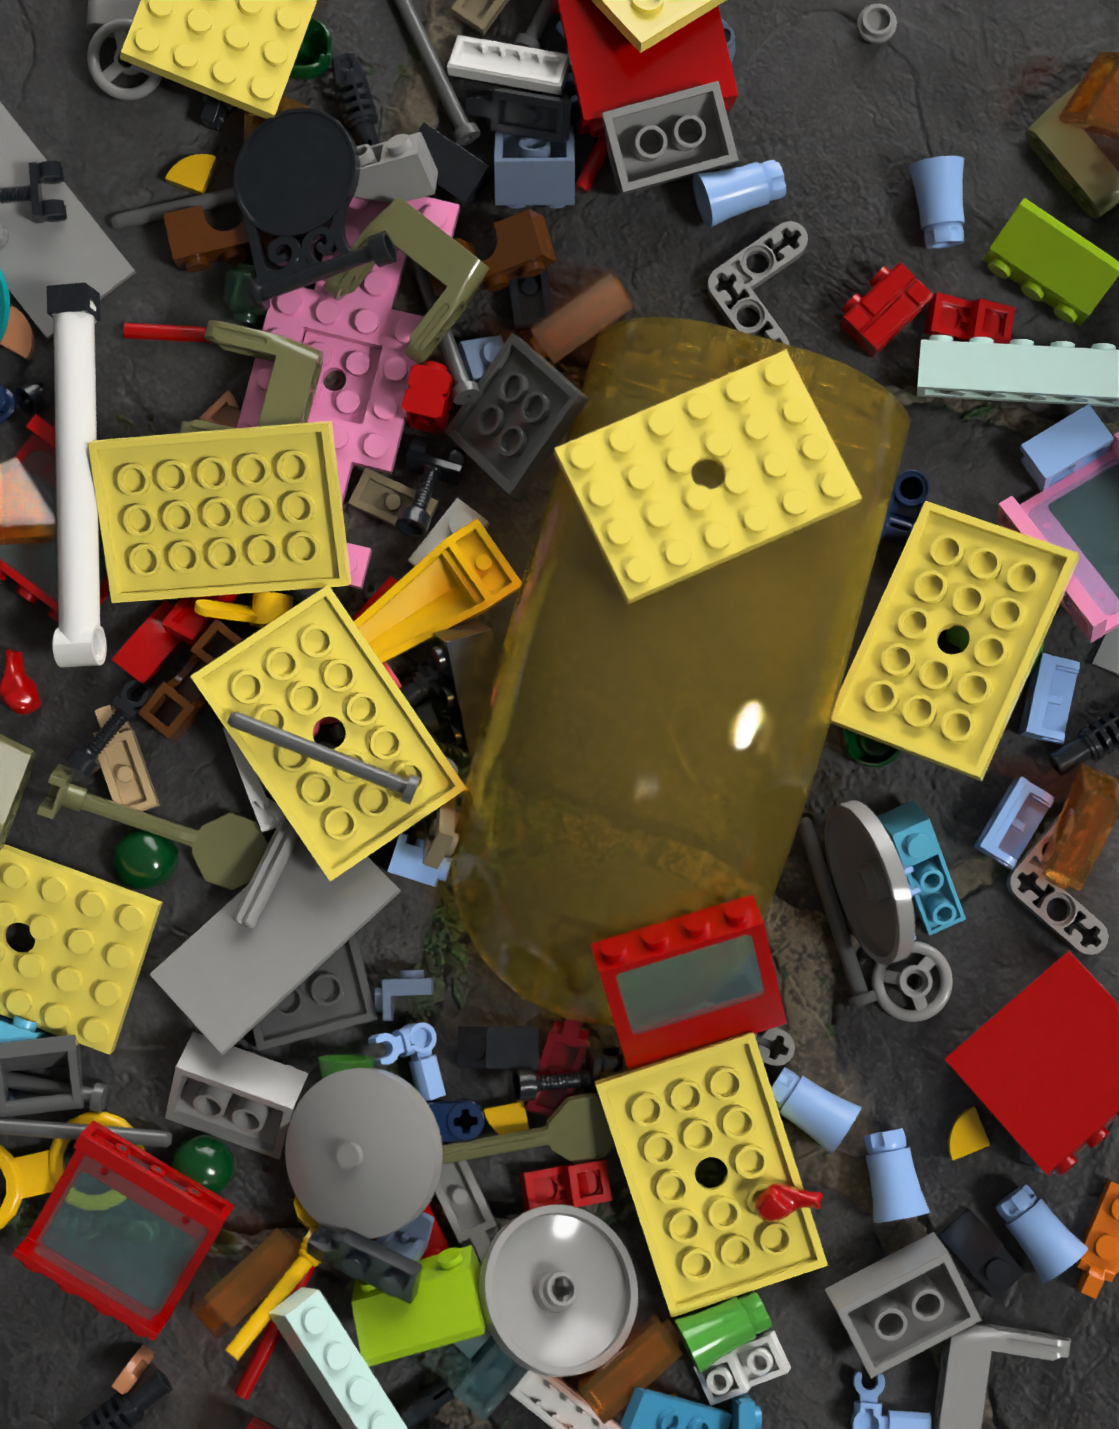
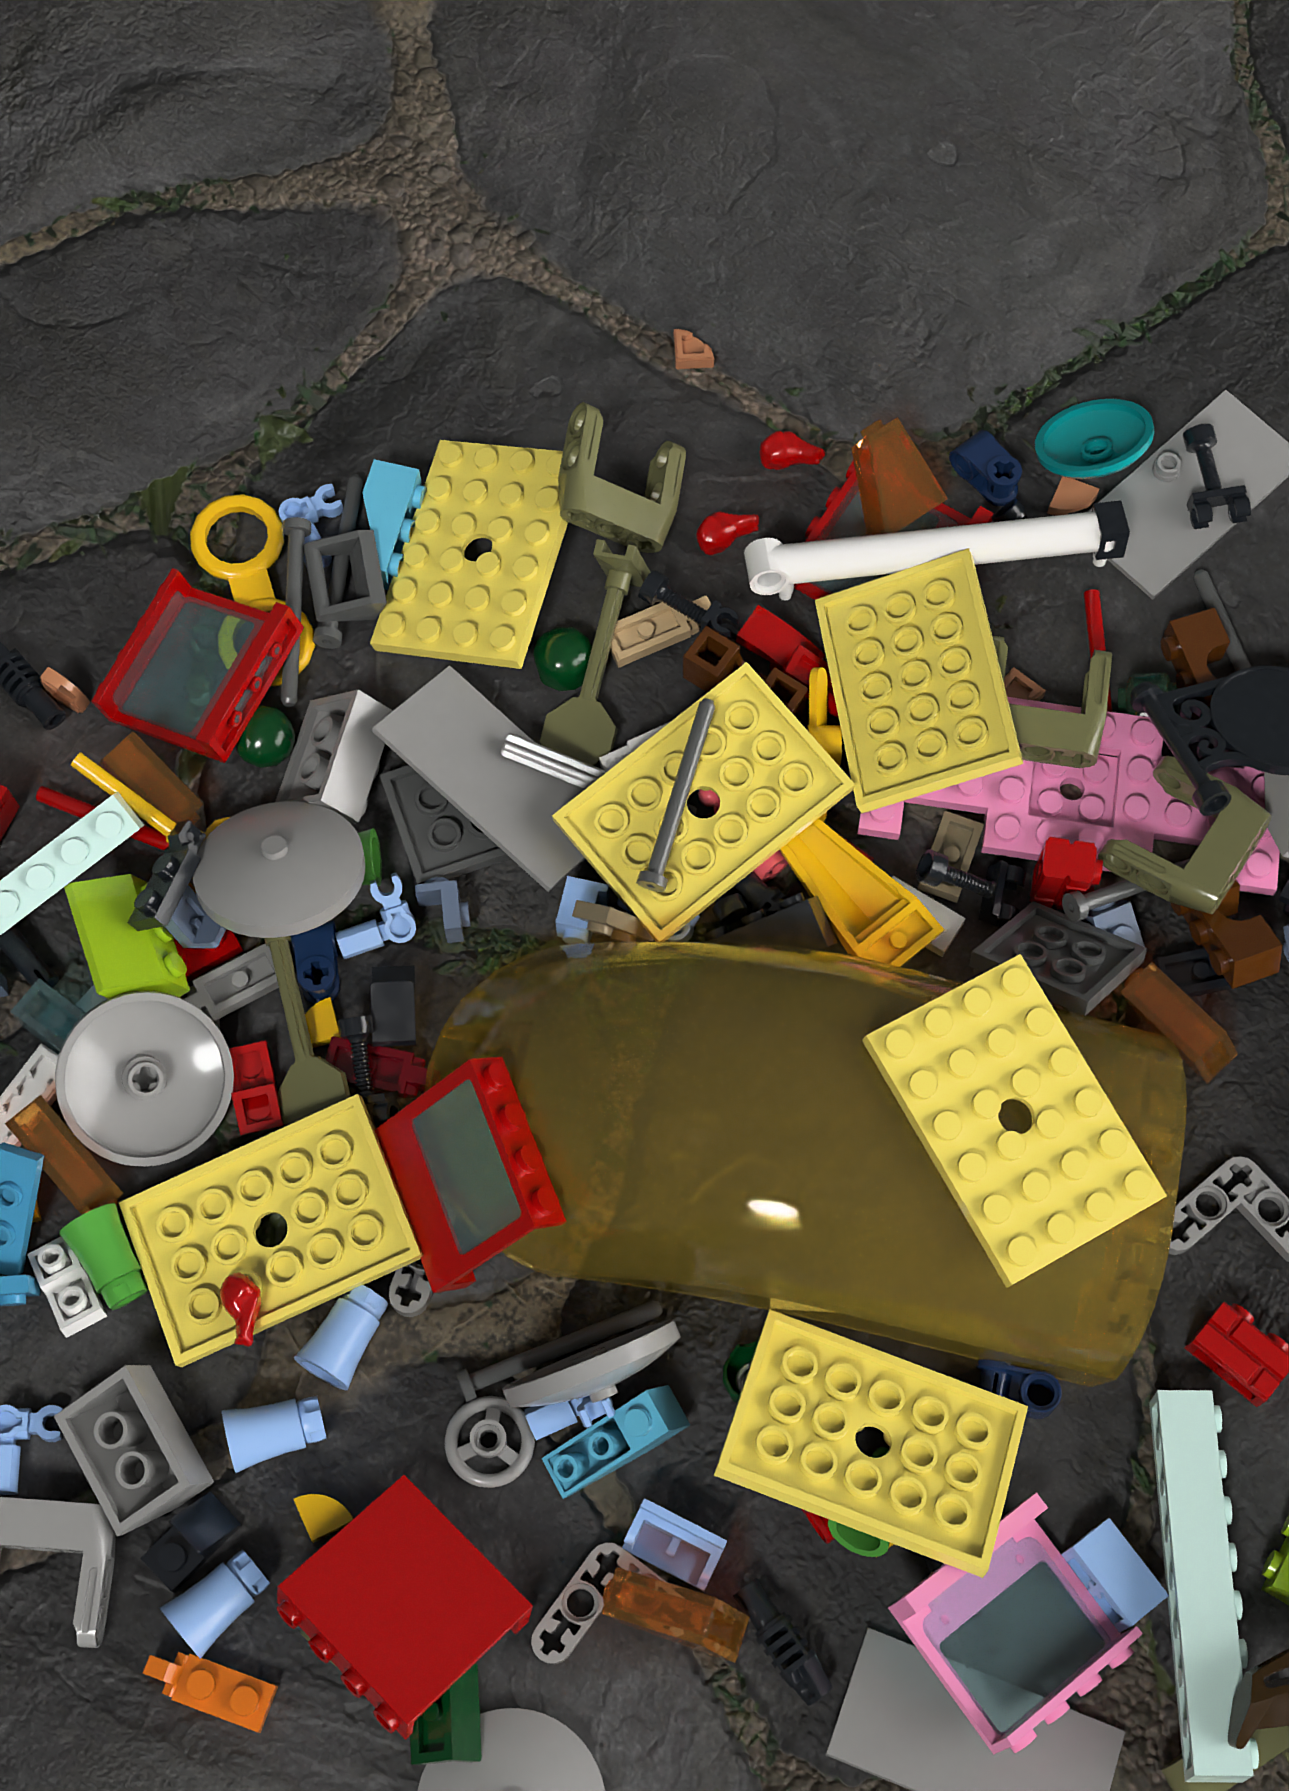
camera: 85 degrees right, 15 degrees down
(193, 173) = (1264, 640): yellow tile -> none
(969, 319) = (1246, 1447): red slope -> none
(1049, 699) = (820, 1577): light blue hinge -> none

